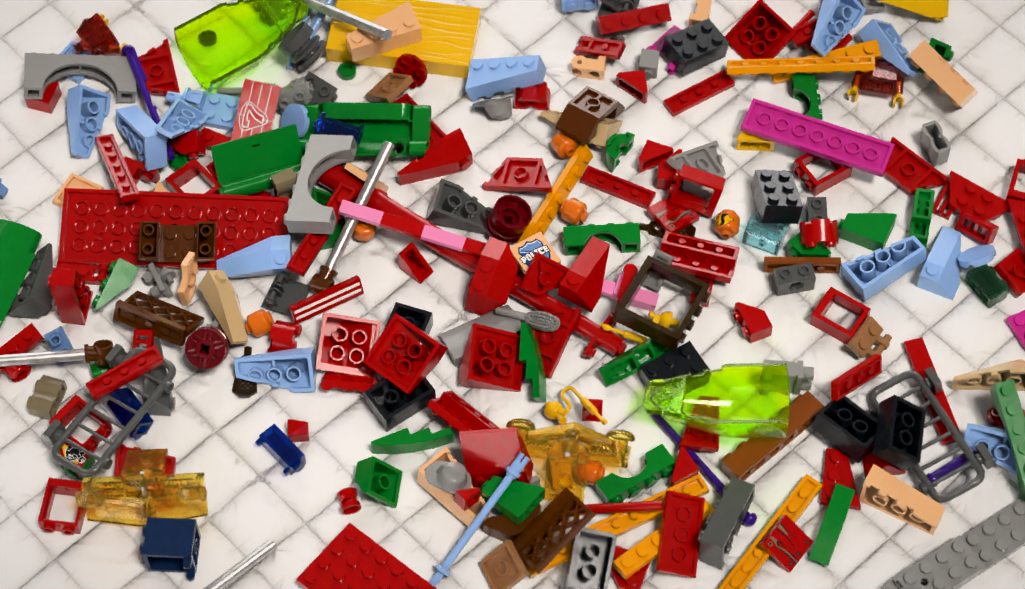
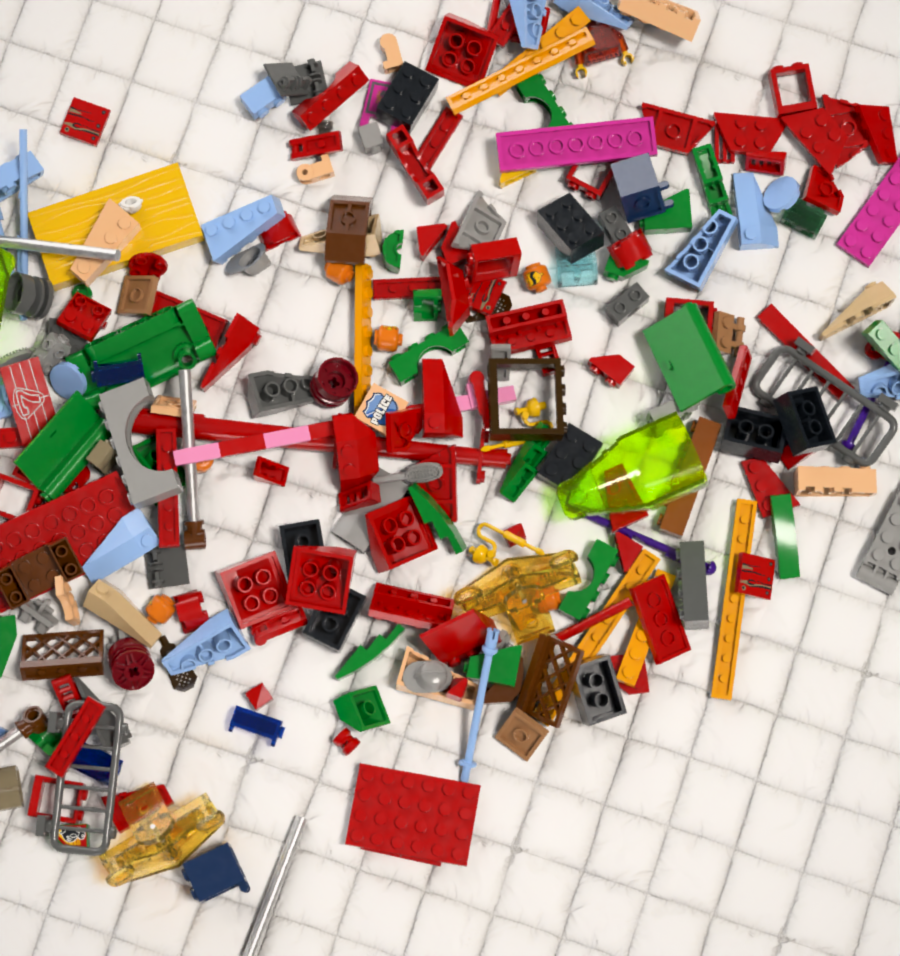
camera: 30 degrees left, 20 degrees up
(61, 487) = (81, 867): red window -> none
(326, 299) = (208, 552): red tile -> none
(337, 82) = (84, 317): none -> red plate
(424, 18) = (131, 204): none -> white animal
(480, 315) = (371, 496): none -> red slope
(520, 175) = (316, 326): red wing -> none
(621, 201) = (427, 304): none -> green cylinder
(633, 83) = (370, 168): red slope -> none
(648, 201) = (454, 294): none -> red wedge
(672, 96) = (412, 162): none -> red arch
(819, 264) = (622, 286): dark orange tile -> none
(823, 334) = (693, 353): none -> green door
(852, 191) = (639, 188): none -> container
(935, 142) = (688, 92): light grey brick -> none

